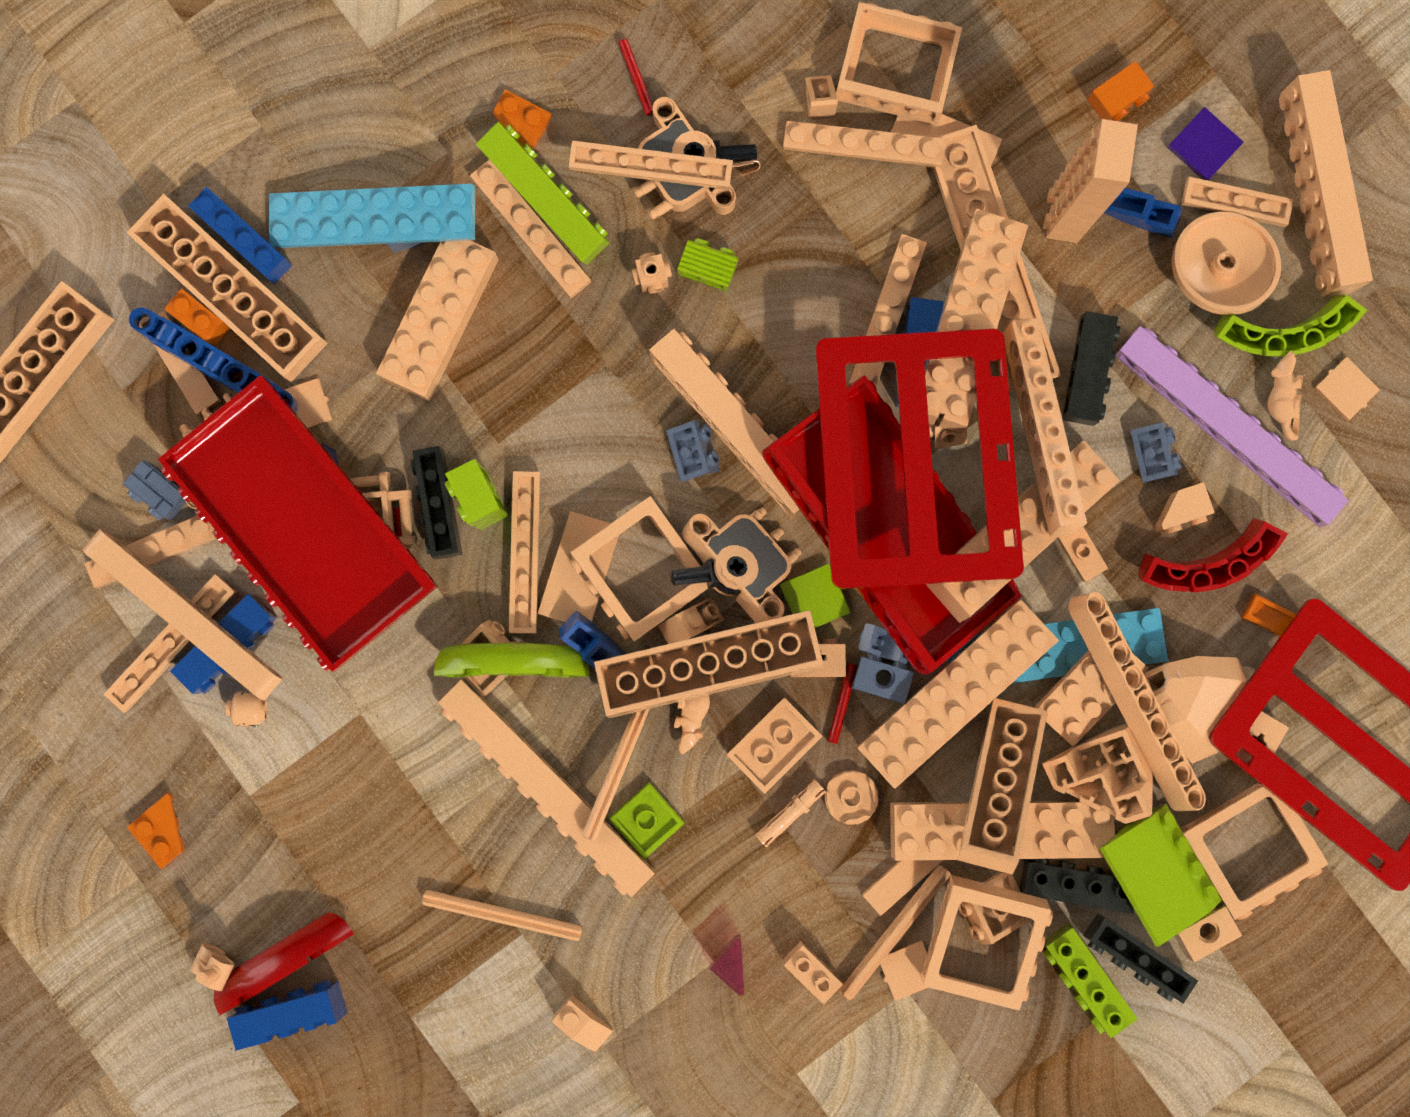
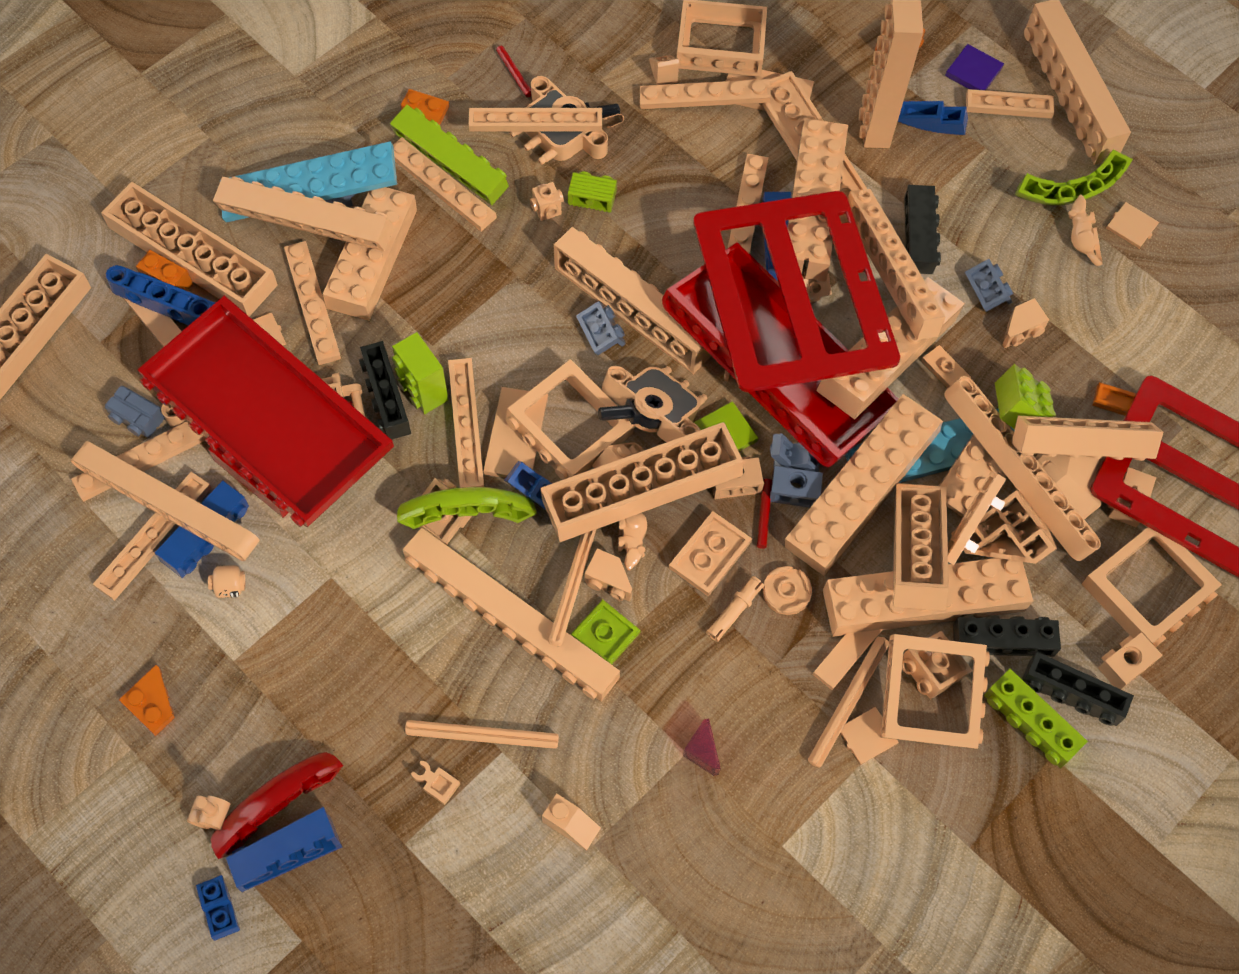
camera: 10 degrees left, 20 degrees down
(218, 1059) = (218, 907): none -> blue slope
(240, 235) = (198, 209): blue brick -> none
(360, 267) = (304, 213): none -> light nougat brick
(364, 366) = (312, 303): none -> light nougat plate
(451, 965) = (438, 784): none -> light nougat plate
(659, 756) = (608, 574): none -> light nougat slope
(812, 972) = (780, 743): light nougat brick -> none
(1085, 744) = (984, 499): none -> light nougat hinge
(1159, 626) = (1022, 396): none -> lime brick
(1160, 875) = (1077, 608): lime slope -> none
(1218, 686) = (1086, 437): none -> light nougat brick
(1219, 570) = (1088, 345): red brick -> none
(1226, 263) = (1012, 142): light nougat dish -> none
(1231, 427) = (1047, 260): lavender brick -> none

